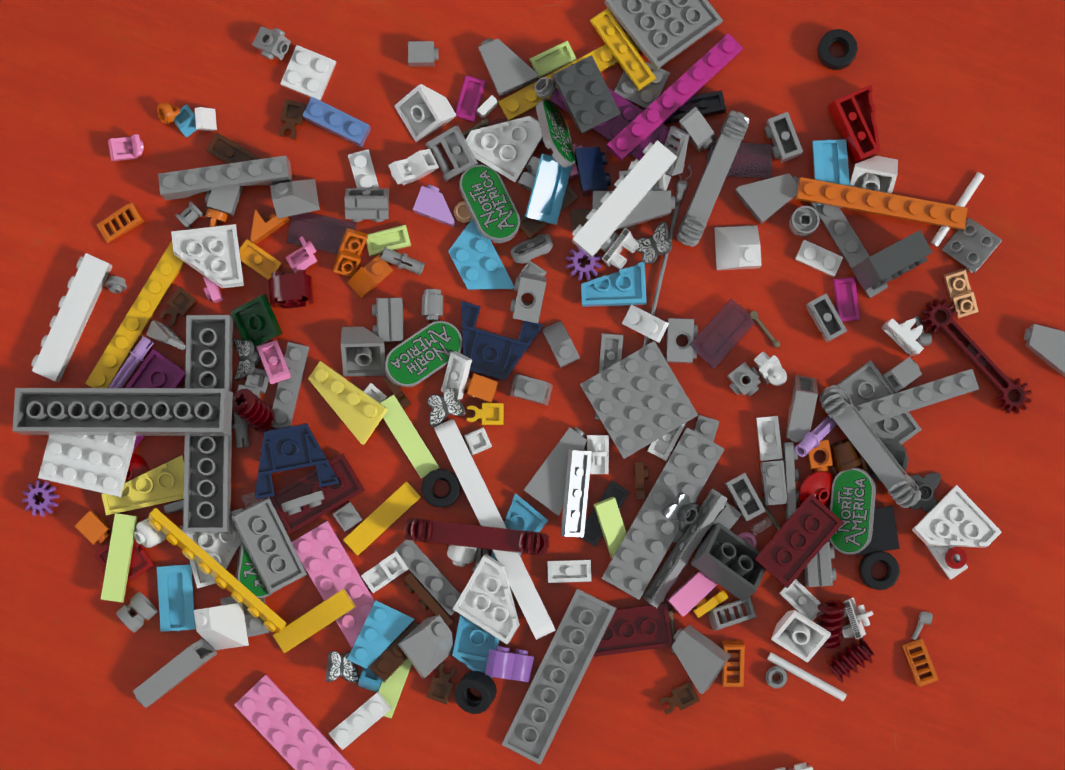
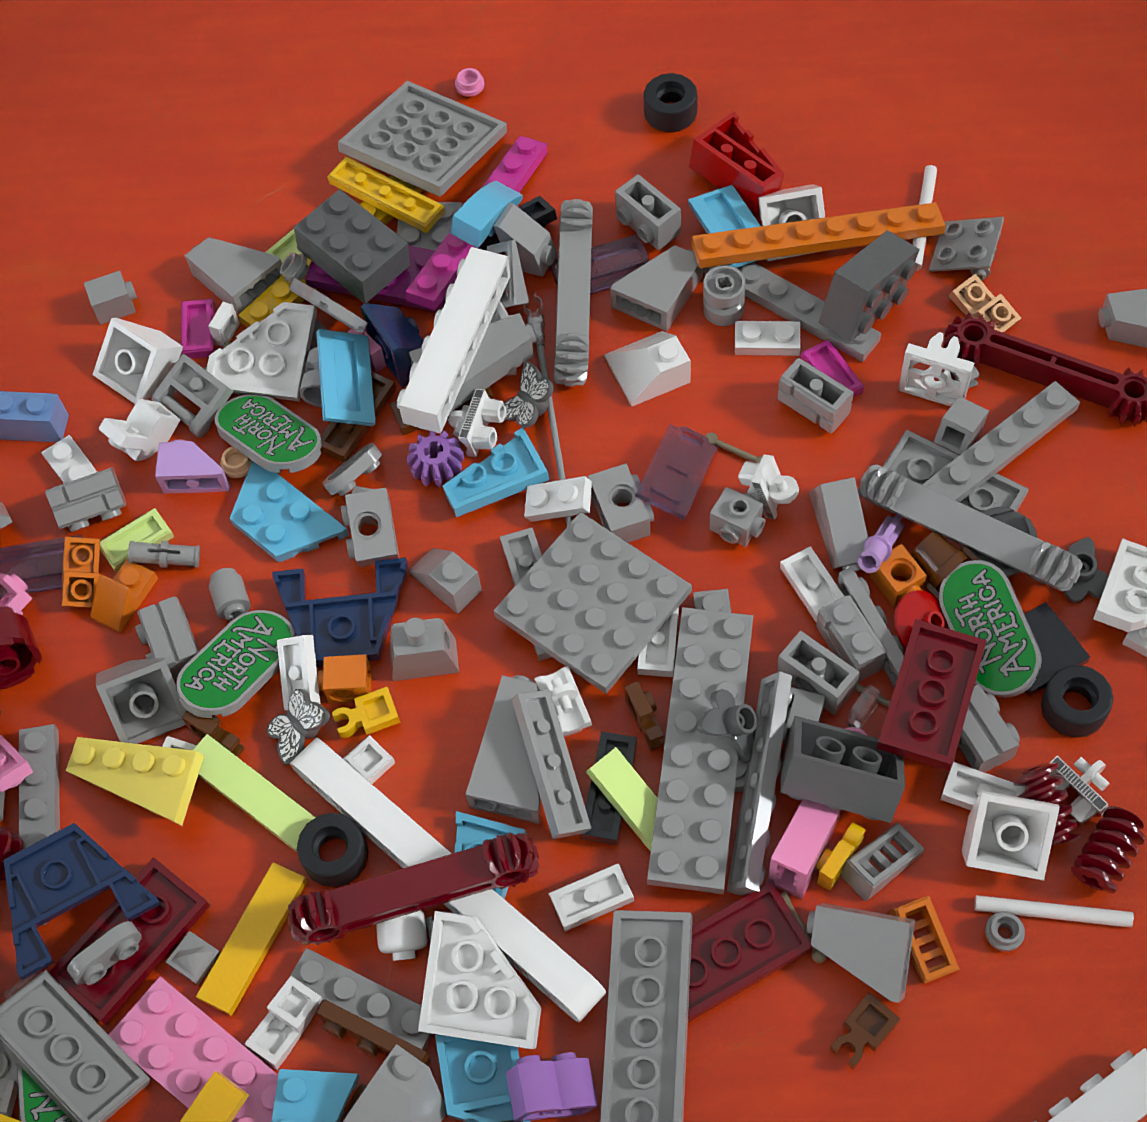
camera: 15 degrees left, 25 degrees down
(679, 104) = (480, 212): none -> medium azure slope

